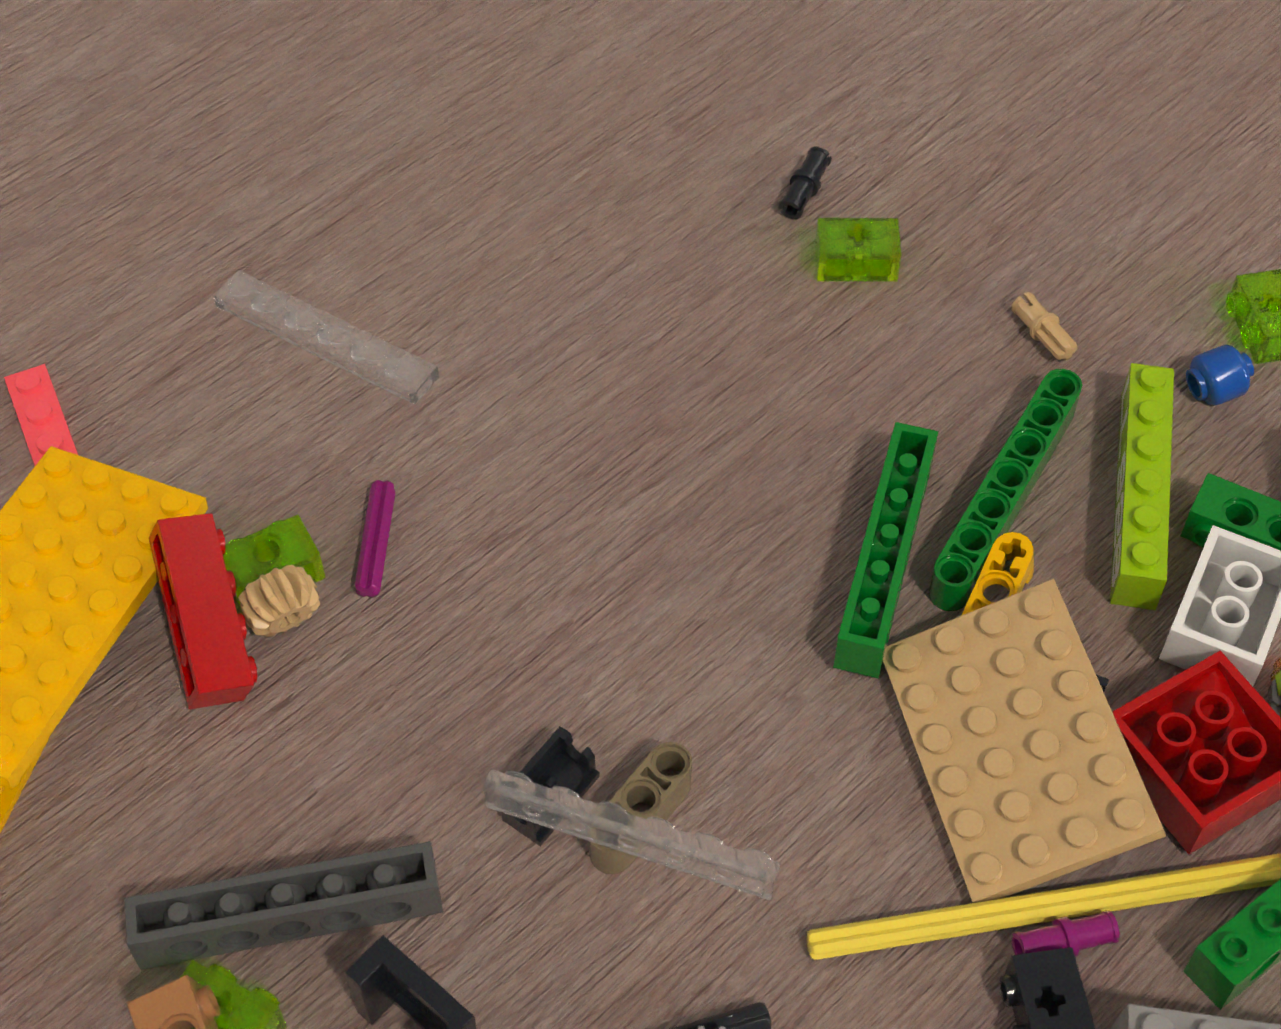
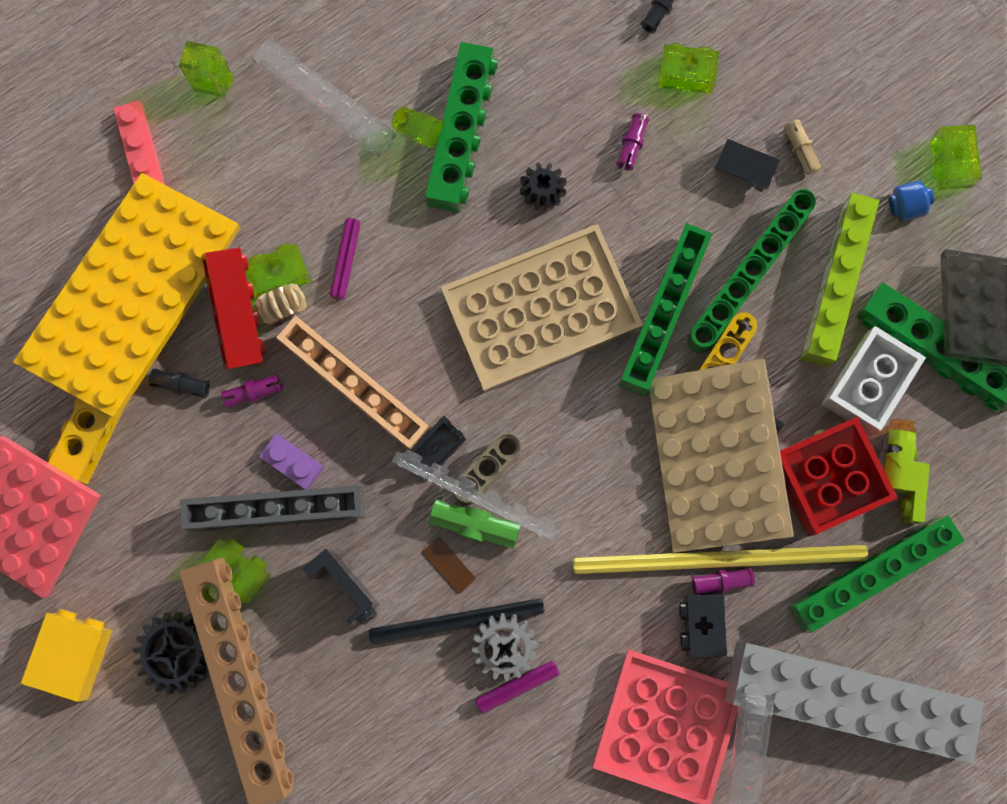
camera: 10 degrees right, 25 degrees up
(115, 739) = (179, 383): none -> black pin
(147, 308) = (206, 69): none -> clear neon green brick
(237, 737) = (251, 391): none -> magenta pin
(306, 835) = (291, 462): none -> medium lavender plate
(402, 698) = (353, 383): none -> light nougat brick
(473, 347) = (418, 126): none -> clear neon green piece
(534, 353) = (470, 60): none -> green brick
(595, 974) = (449, 565): none -> reddish brown sticker
(631, 896) = (474, 524): none -> bright green piece
(670, 411) = (541, 196): none -> black gear
(691, 572) = (541, 307): none -> tan plate
(794, 344) = (632, 142): none -> magenta pin
(969, 349) = (747, 163): none -> black hinge

